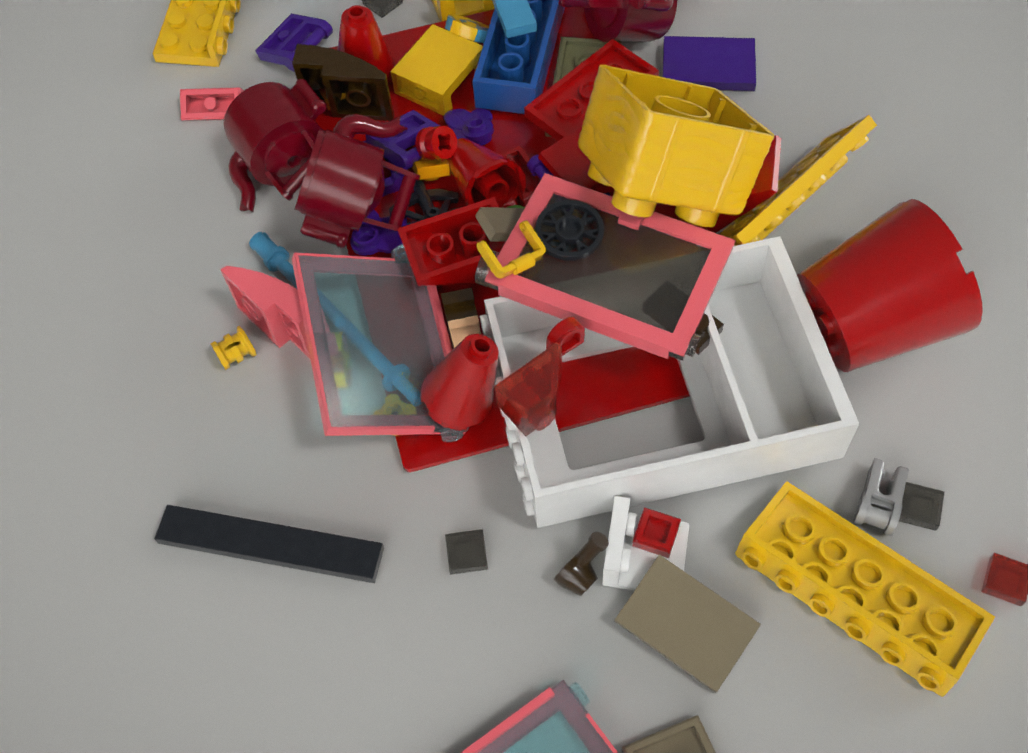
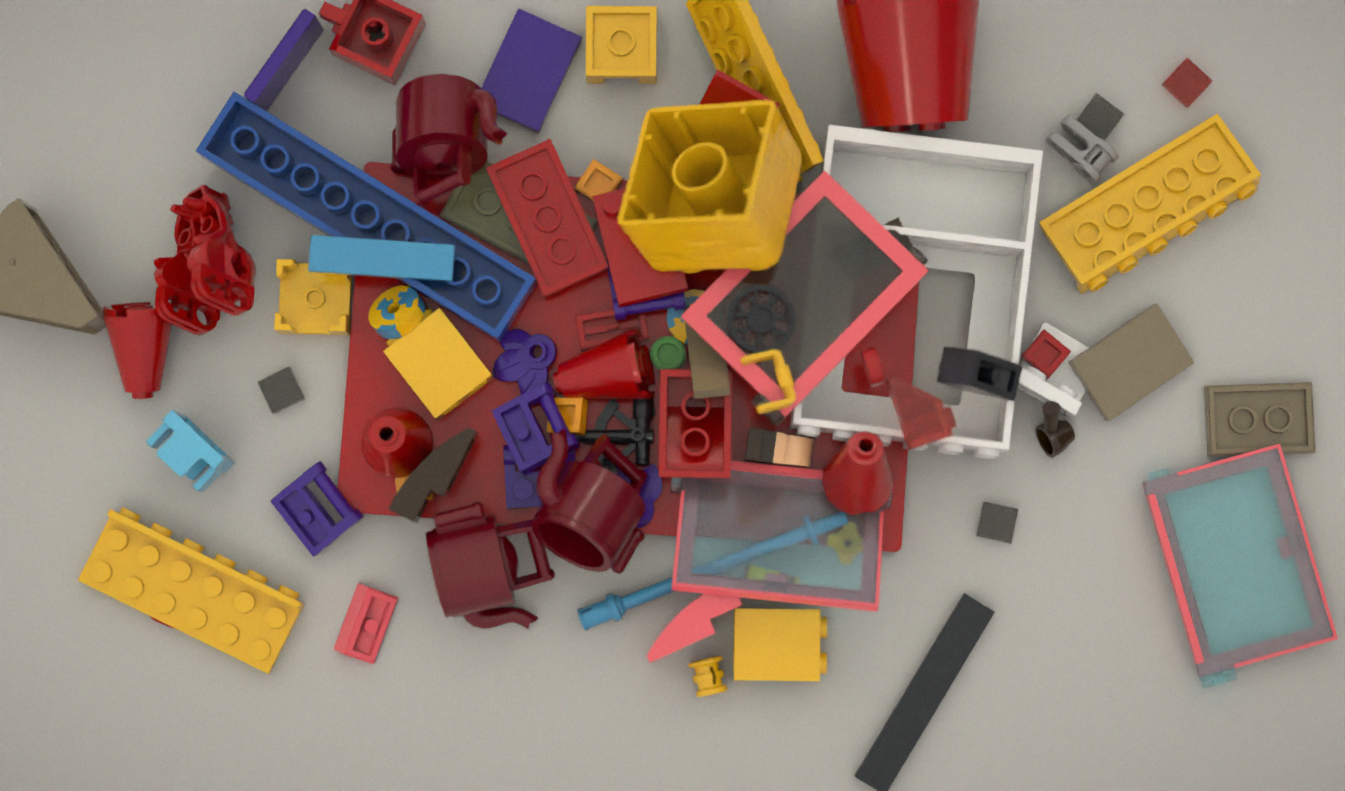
camera: 75 degrees left, 25 degrees up
(278, 393) = (778, 644): none -> yellow panel
(431, 138) = (564, 403): red wheel -> none
(601, 433) = (979, 373): none -> black slope
(770, 97) = (621, 43): none -> yellow panel

